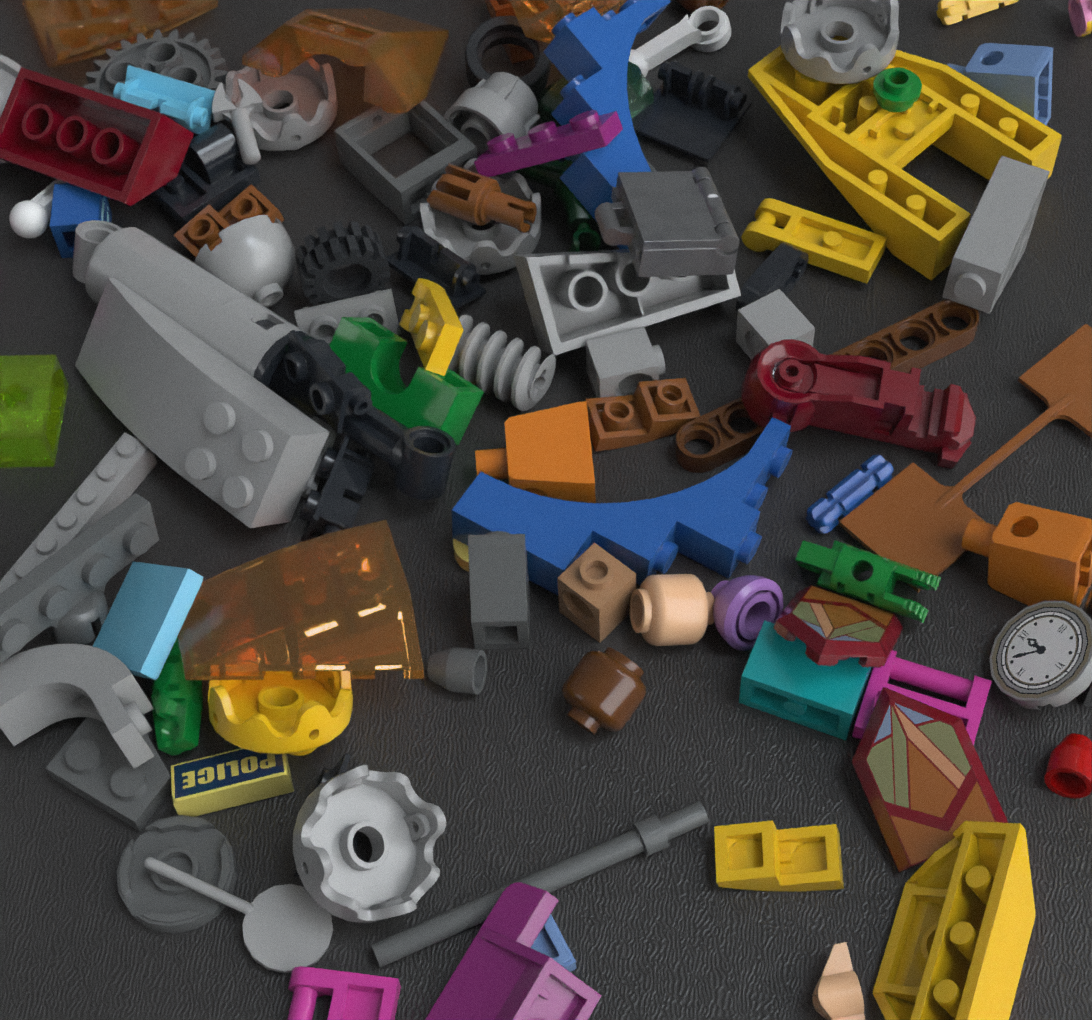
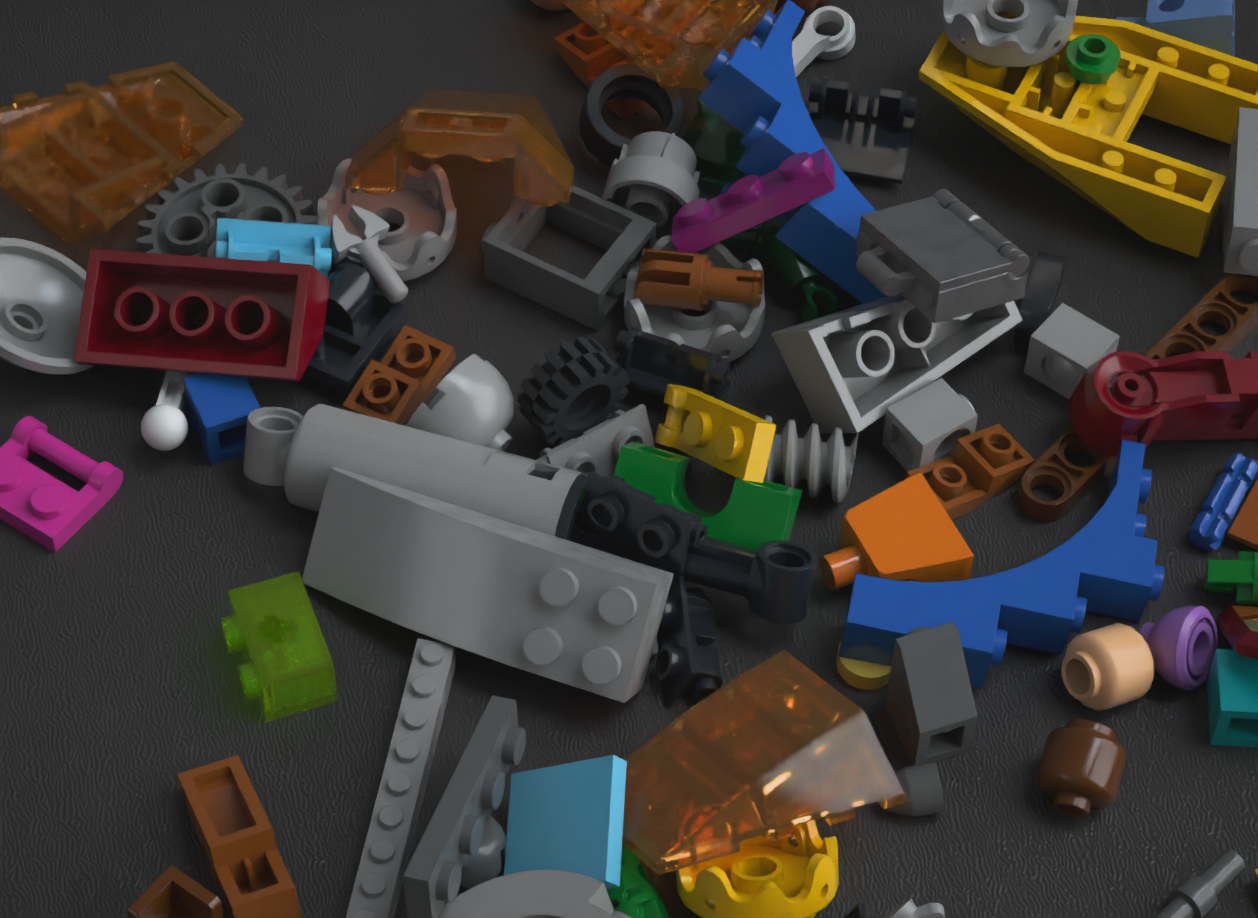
camera: 25 degrees left, 5 degrees down
(596, 592) = (1025, 670): medium nougat brick -> none
(825, 240) = (1084, 241): yellow plate -> none

